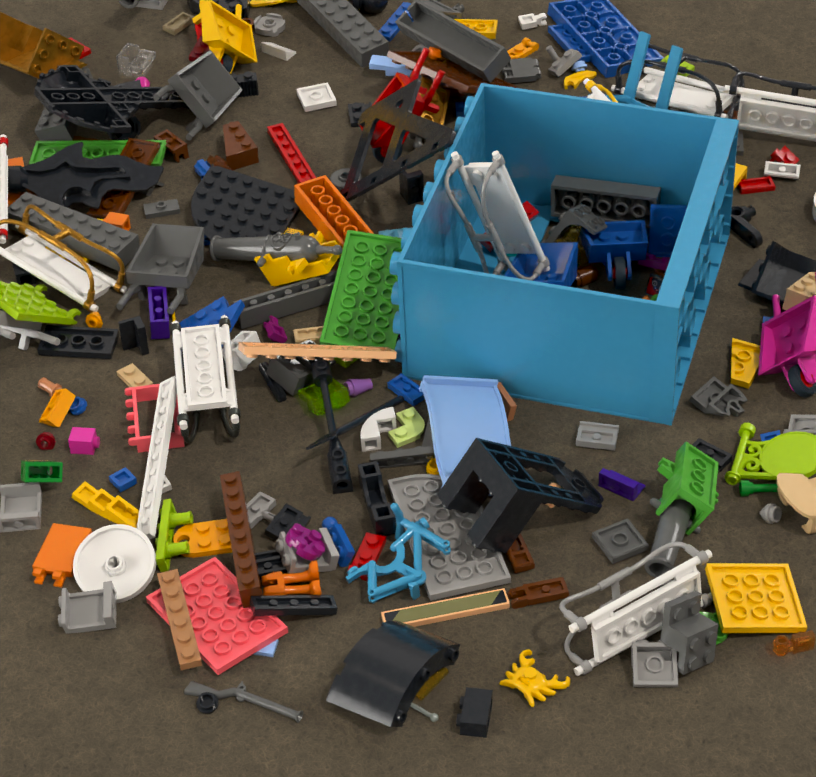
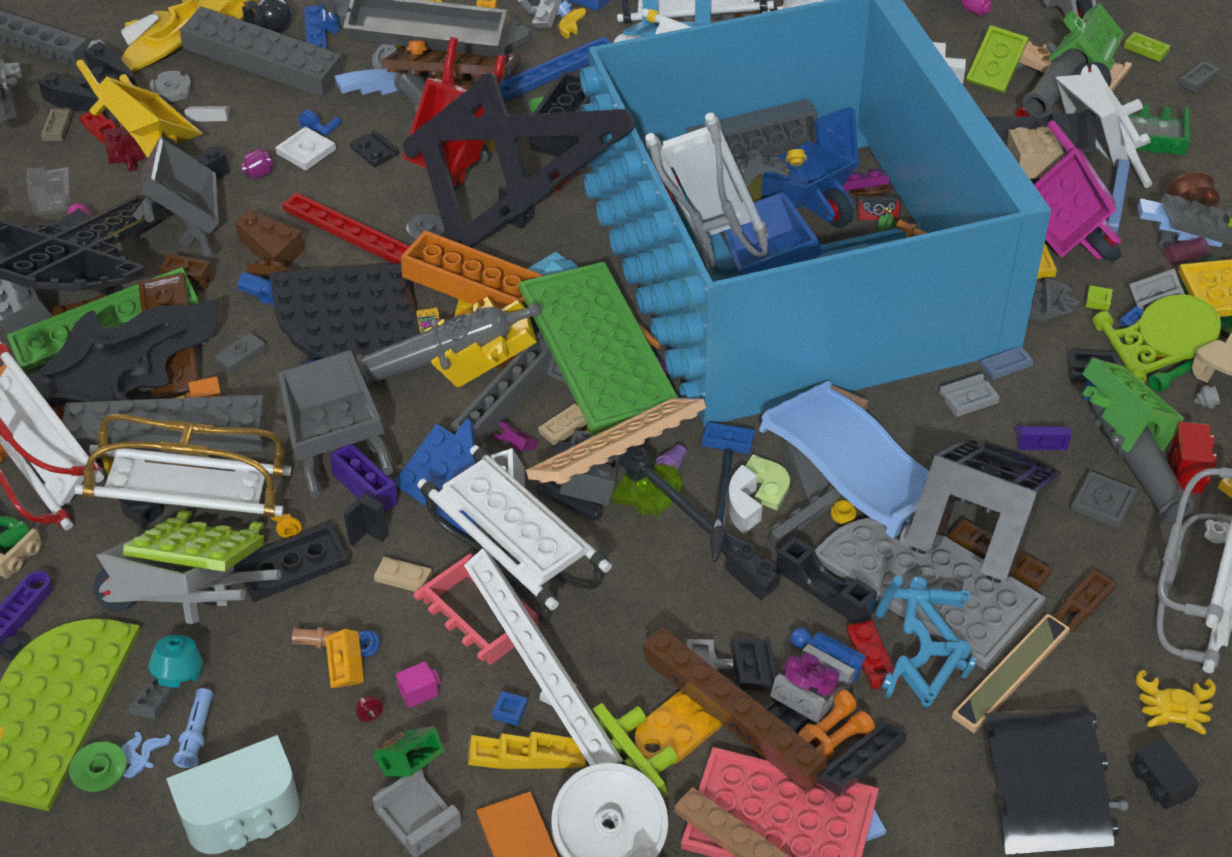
camera: 35 degrees left, 5 degrees up
(276, 94) = (257, 163): none -> magenta head
(334, 80) = (311, 121): none -> blue plate
(621, 226) = (796, 157): none -> yellow plate
(649, 428) = (1006, 362): none -> sand blue tile
(703, 533) = (1192, 453): none -> red brick
(762, 415) = (1099, 298): none -> lime plate

